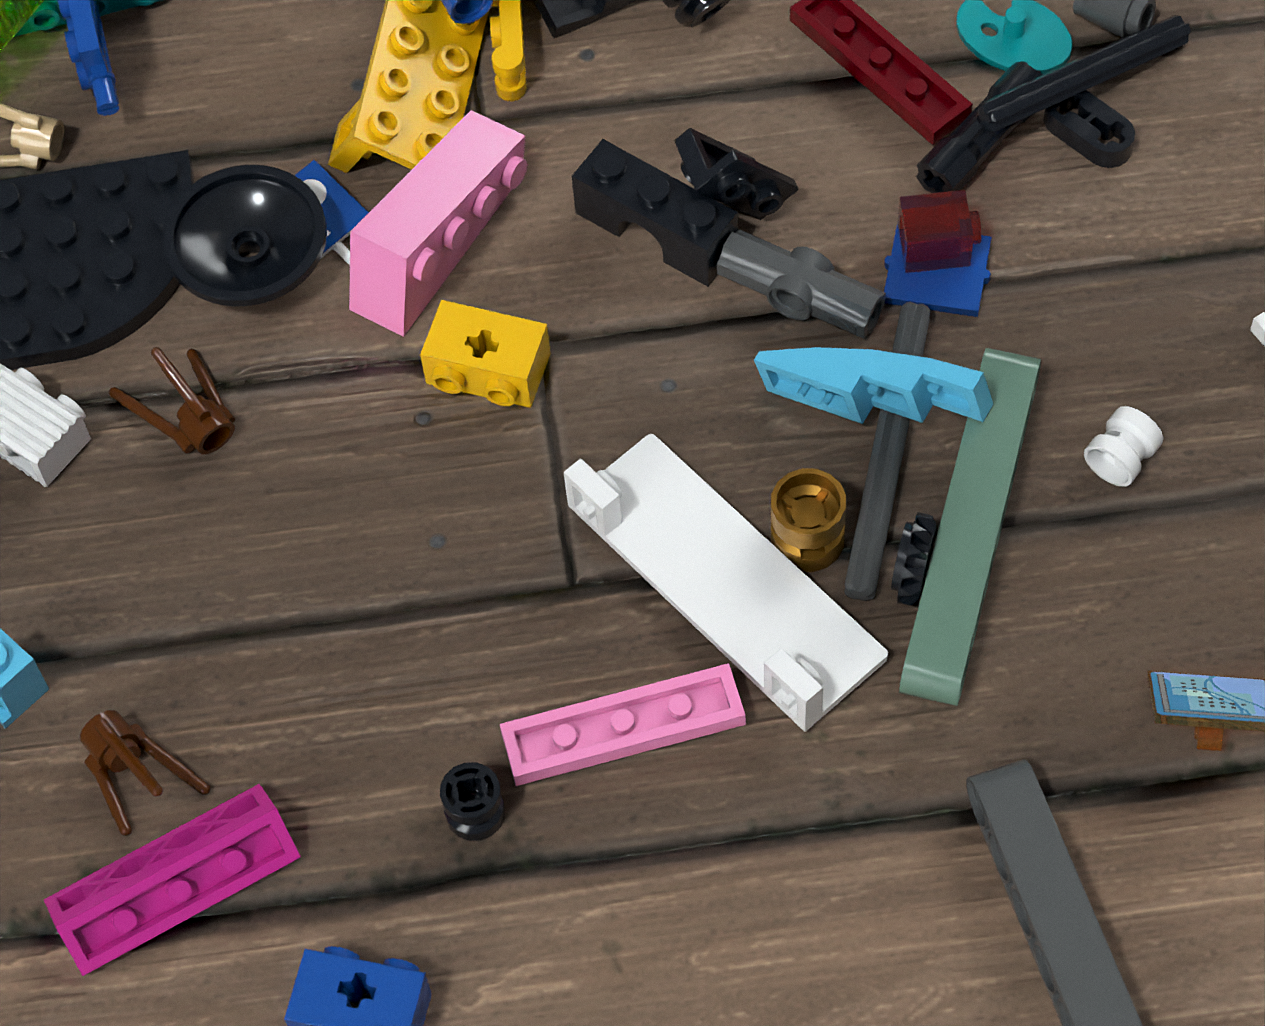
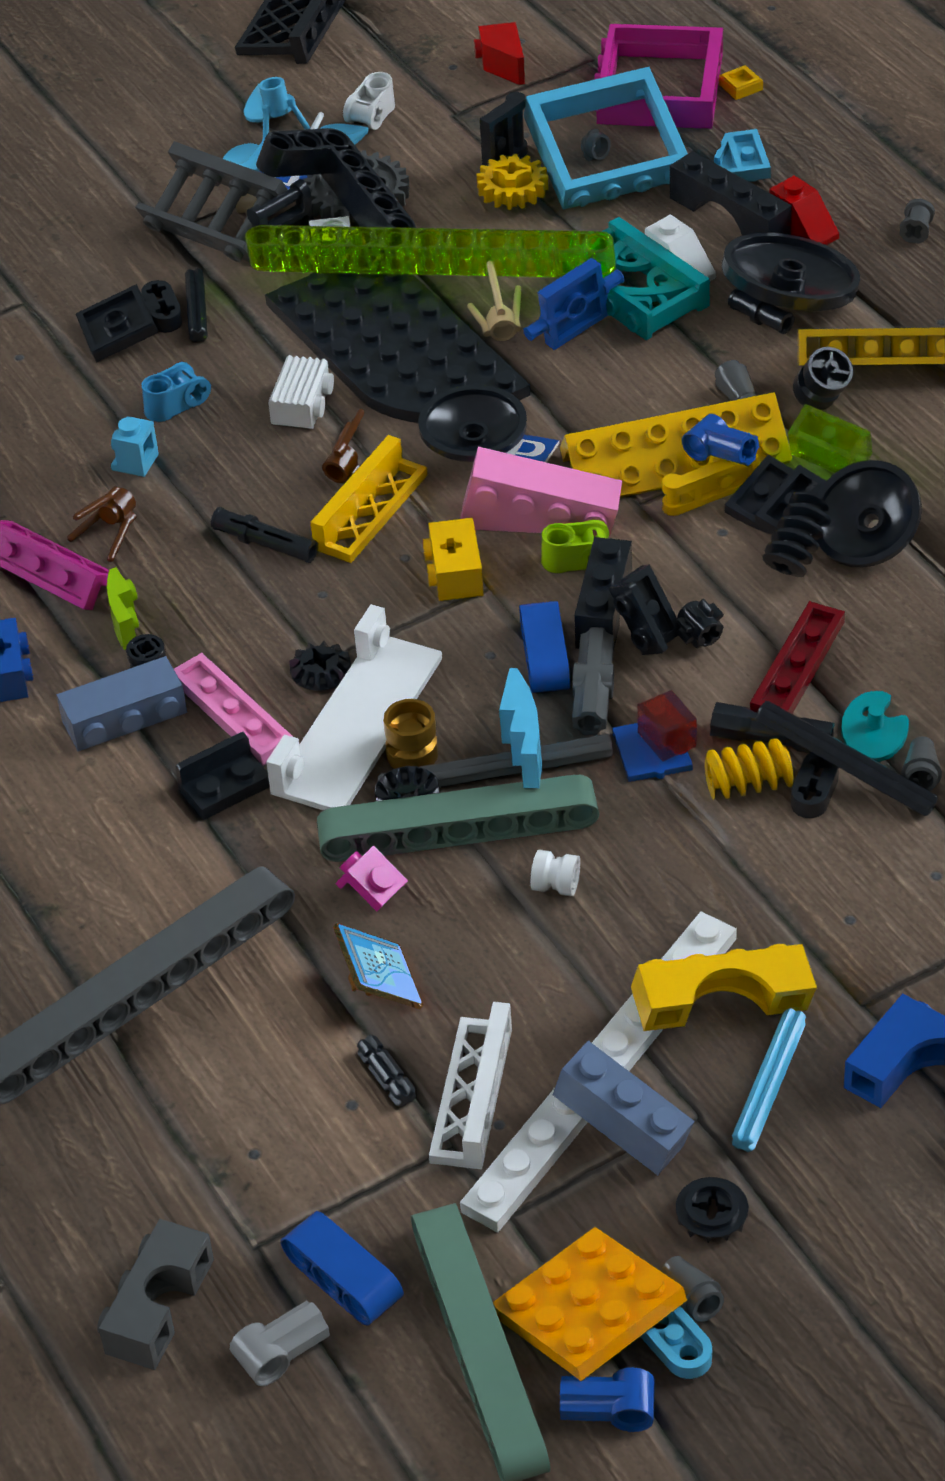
camera: 65 degrees right, 15 degrees down
(233, 606) = (250, 529): none -> black pin
(293, 428) = (357, 498): none -> yellow fence
(318, 798) = (121, 597): none -> lime slope
(540, 215) = (569, 544): none -> lime piece
(545, 864) = (122, 703): none -> sand blue brick
(608, 605) = (313, 676): none -> black gear
(707, 312) = (544, 647): none -> blue beam
(753, 781) = (221, 776): none -> black bracket
(766, 131) = (700, 623): none -> black gear
(1027, 660) = (371, 877): none -> bracket
(1048, 179) = (748, 767): none -> yellow piece

